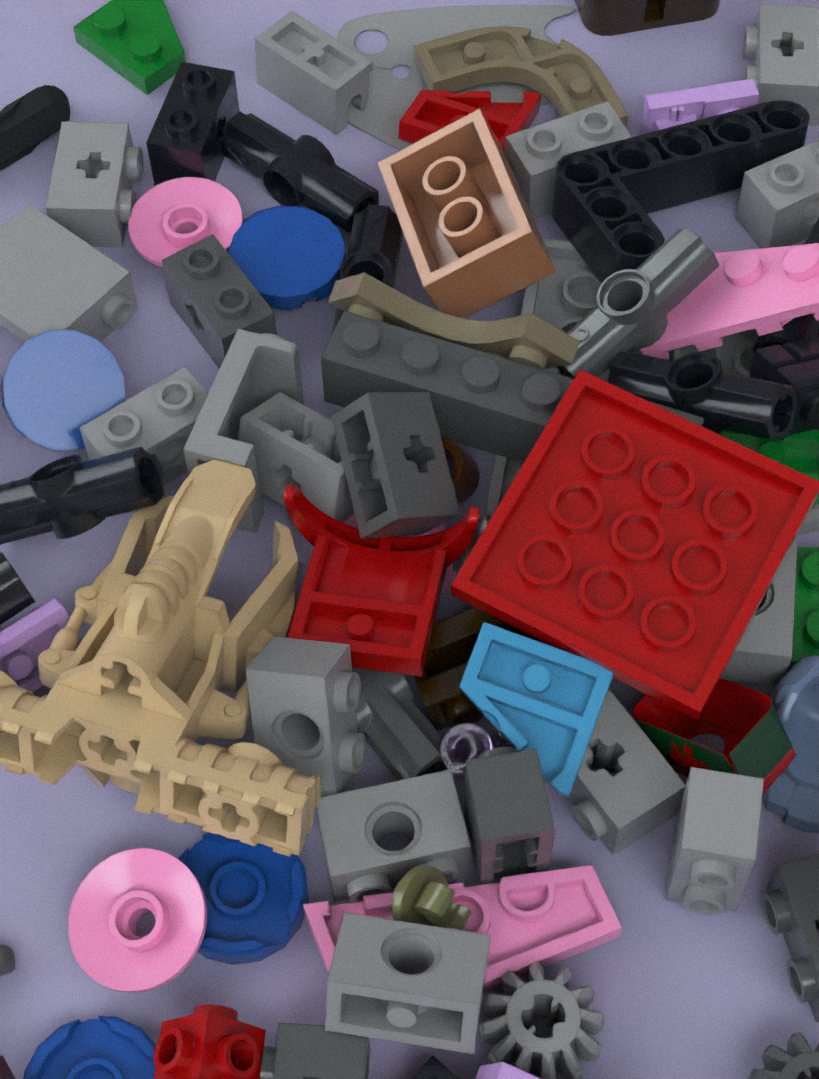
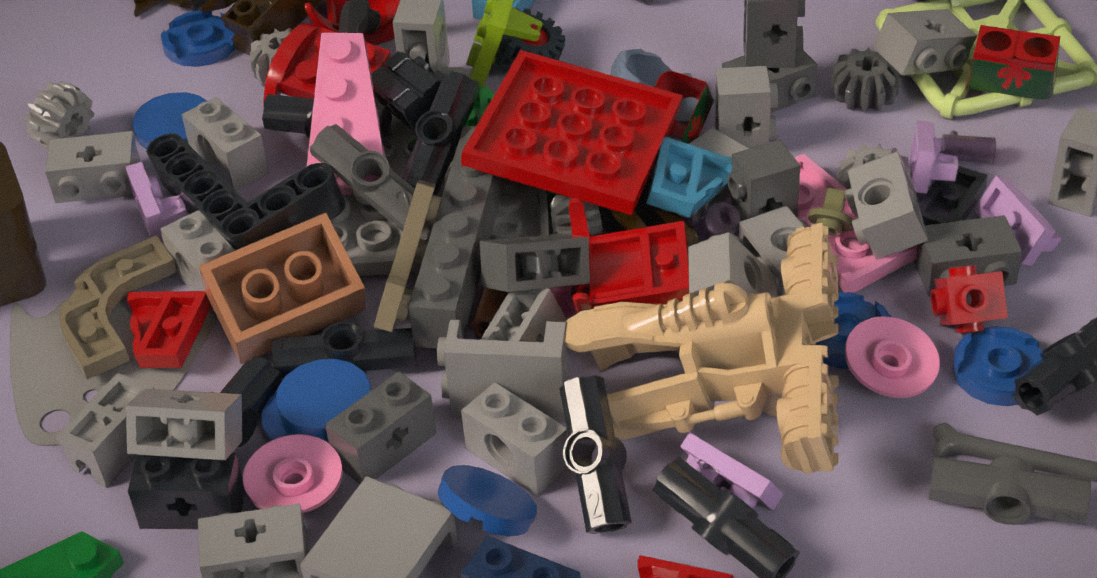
camera: 100 degrees left, 15 degrees down
(238, 98) = (184, 424): none -> light grey brick

